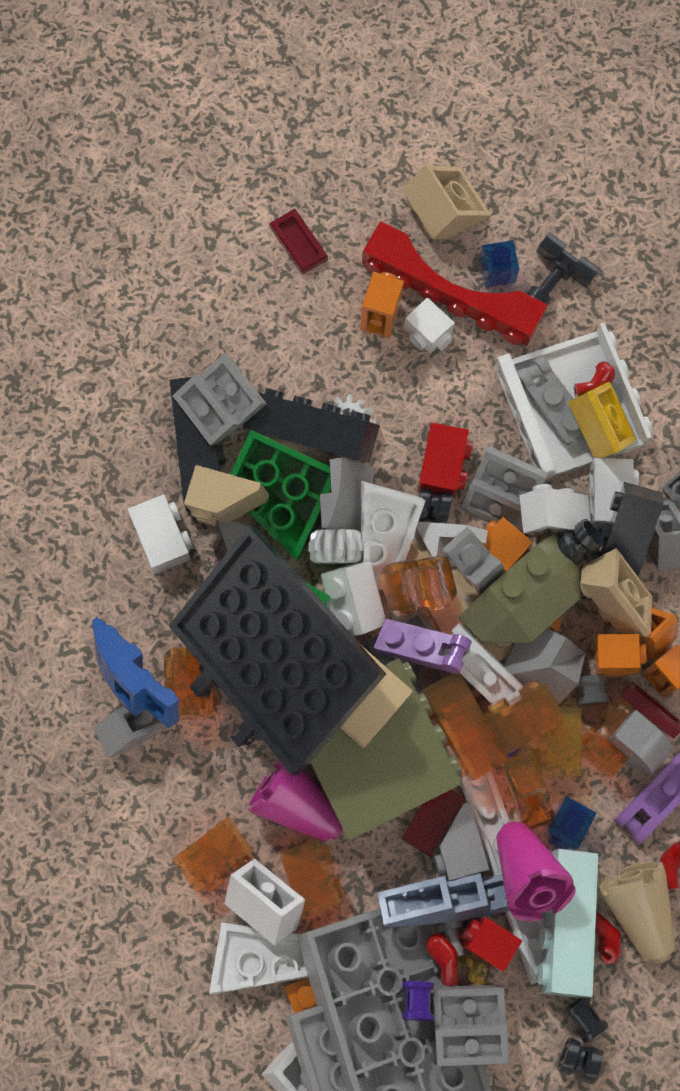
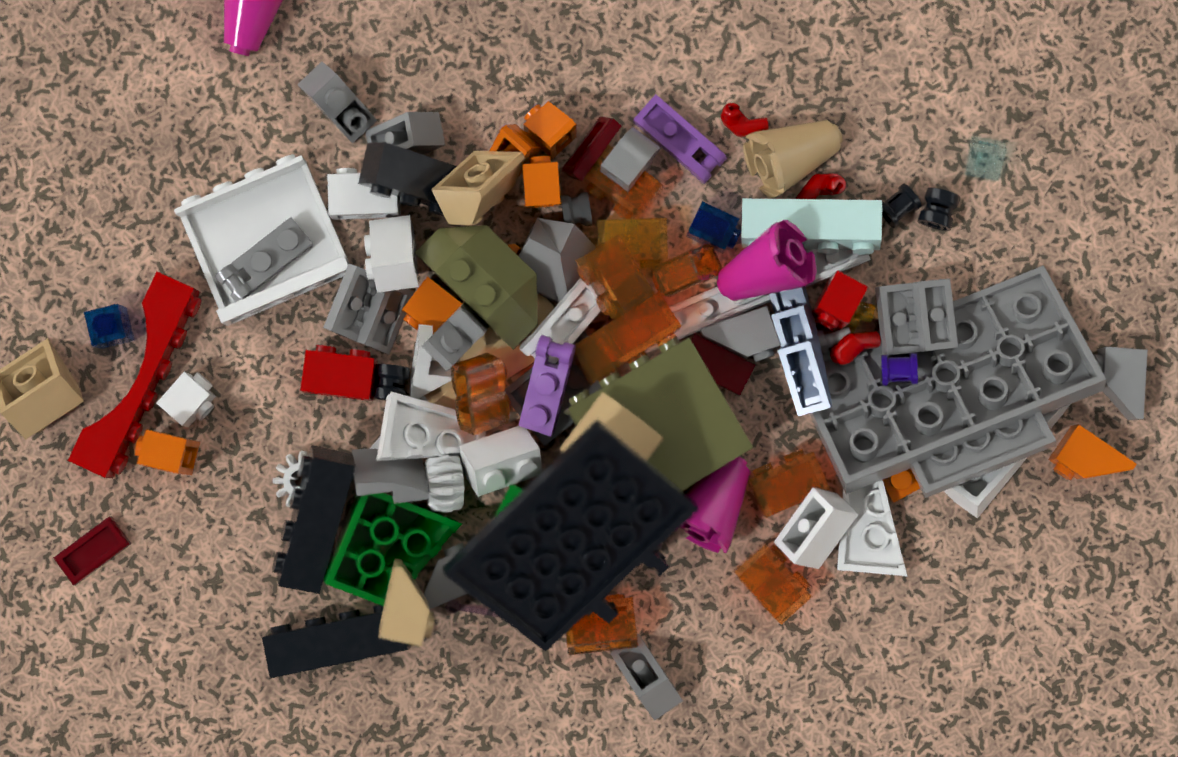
camera: 90 degrees left, 10 degrees up
(124, 673) = (597, 693): blue slope -> none
(159, 533) = (440, 672): white brick -> none
(219, 399) = (291, 621): light grey slope -> none
(562, 266) = (105, 256): black bar -> none
(581, 541) = (427, 229): black wheel -> none
(602, 421) = (287, 206): yellow slope -> none
(603, 374) = (242, 211): red arm -> none

